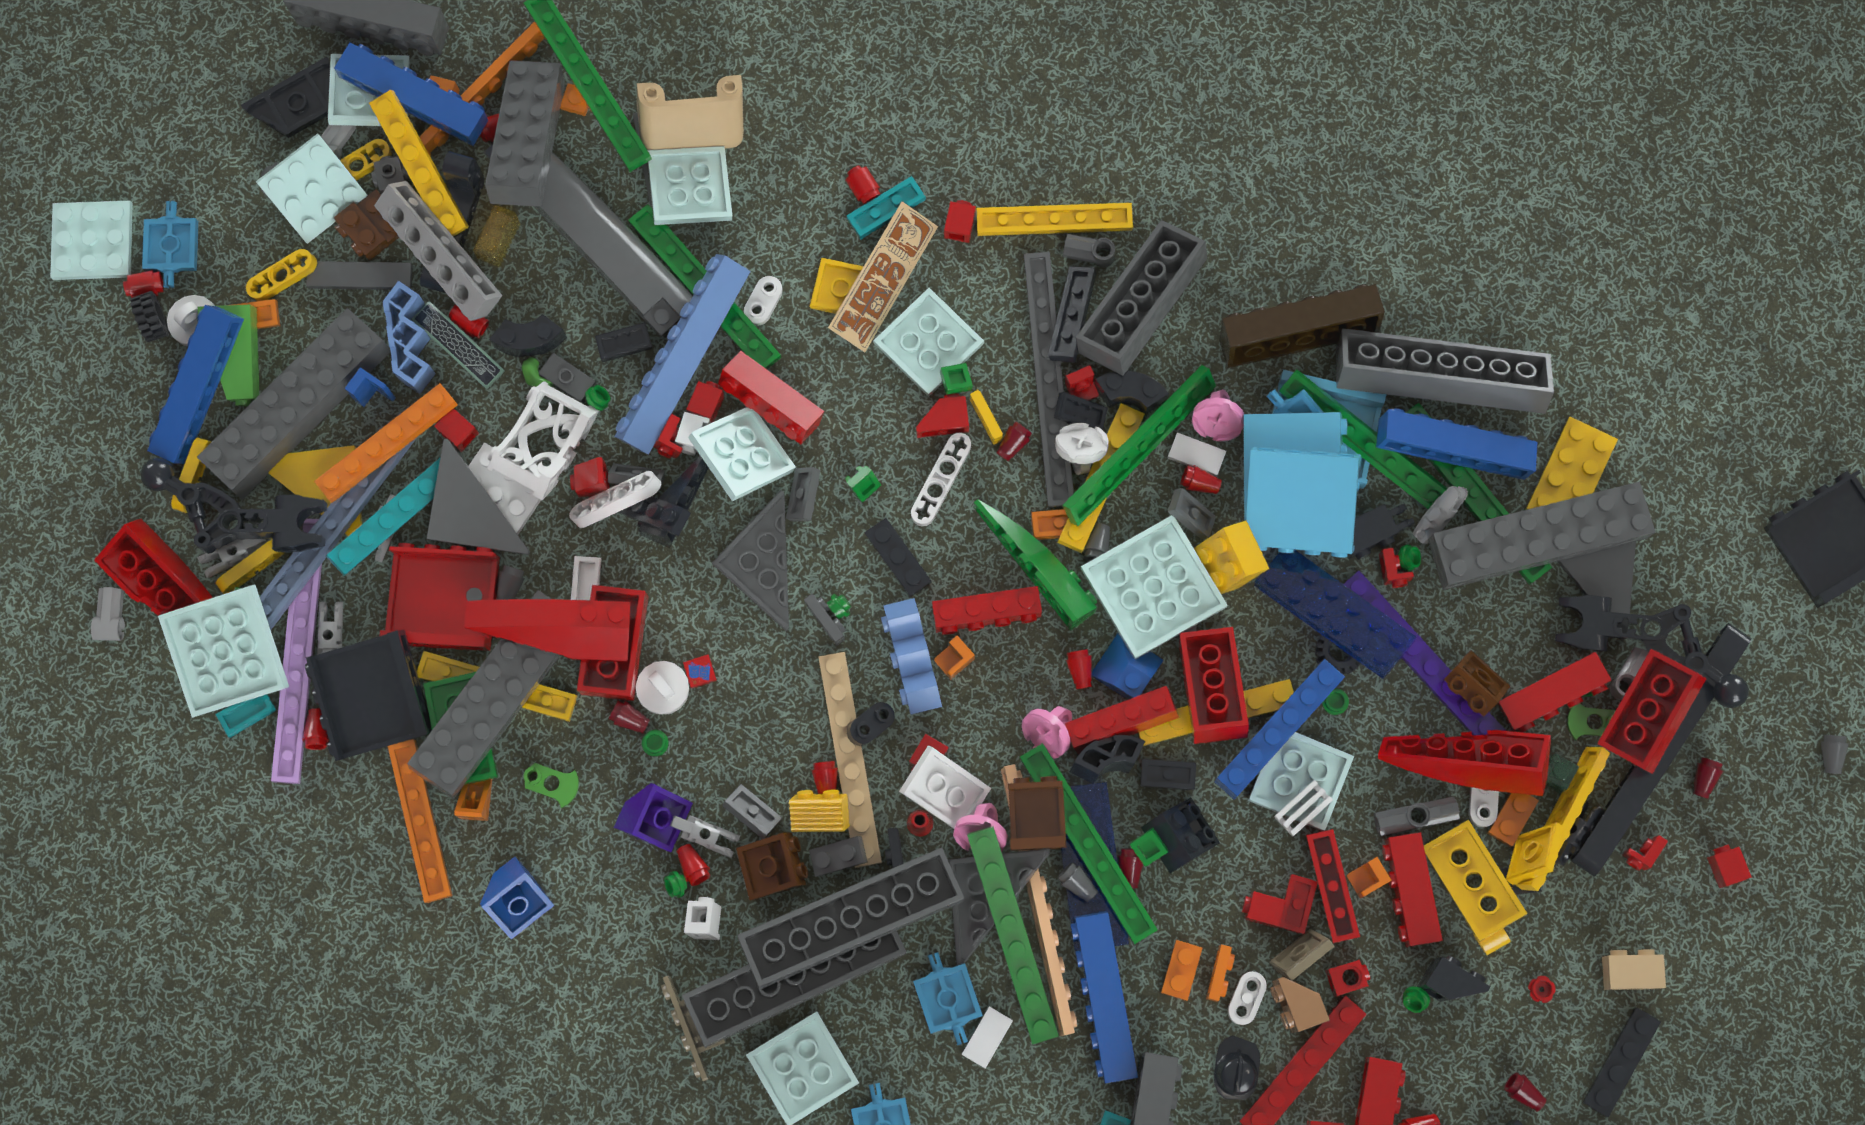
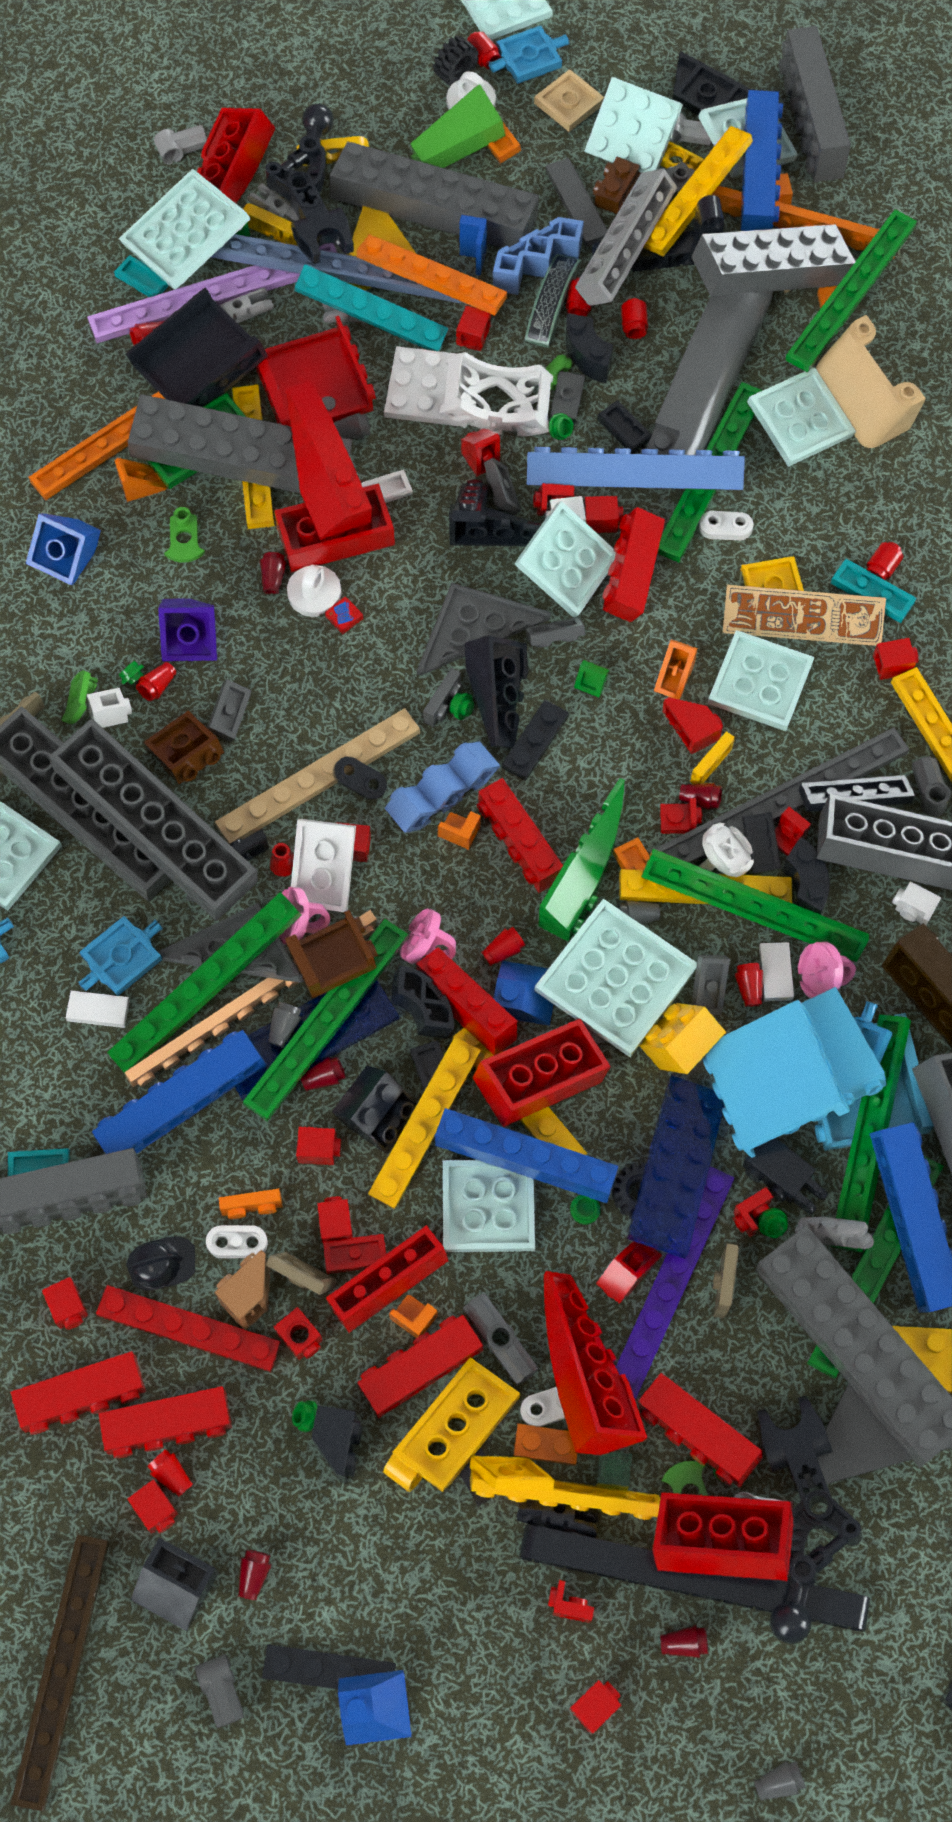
camera: 65 degrees right, 10 degrees down
(195, 384) = (413, 111): blue brick -> none
(243, 231) = (569, 100): none -> tan plate
(270, 273) = (559, 150): yellow beam -> none
(464, 510) = (401, 360): dark grey tile -> none
(497, 236) = (669, 286): clear yellow brick -> none
(515, 281) = (634, 318): none -> red brick
(615, 499) = (469, 472): white beam -> none
(655, 743) = (258, 605): green plate -> none
(691, 832) = (189, 665): light grey hinge -> none
(693, 947) = (80, 686): none -> bright green piece
(819, 812) = (252, 764): yellow brick -> none
(824, 566) = (495, 676): none -> black wedge
(825, 776) = (288, 761): red cone -> none
(838, 856) = (218, 801): dark grey plate -> none
(889, 409) = (676, 669): none -> orange slope
(941, 479) = (631, 741): white beam -> none
(956, 378) = (735, 714): green tile -> none
(1025, 468) = (679, 817): none -> red bracket
(1149, 847) = (347, 1076): green plate -> none
(1181, 970) = (240, 1167): orange plate -> none
(1189, 314) = (916, 903): none -> white brick
(1193, 897) = (317, 1146): none -> red brick
(1210, 800) = (424, 1122): none -> yellow plate
(1320, 793) = (480, 1226): white tile -> none
(1404, 691) = (628, 1270): none -> red slope
(1446, 617) = (724, 1280): none -> dark tan plate
(1476, 683) = (670, 1342): reddish brown plate -> none
(1547, 994) = (366, 1543): red plate -> none
(1633, 971) = (432, 1641): tan brick -> none
(1664, 1037) = (374, 1707): none -> blue slope

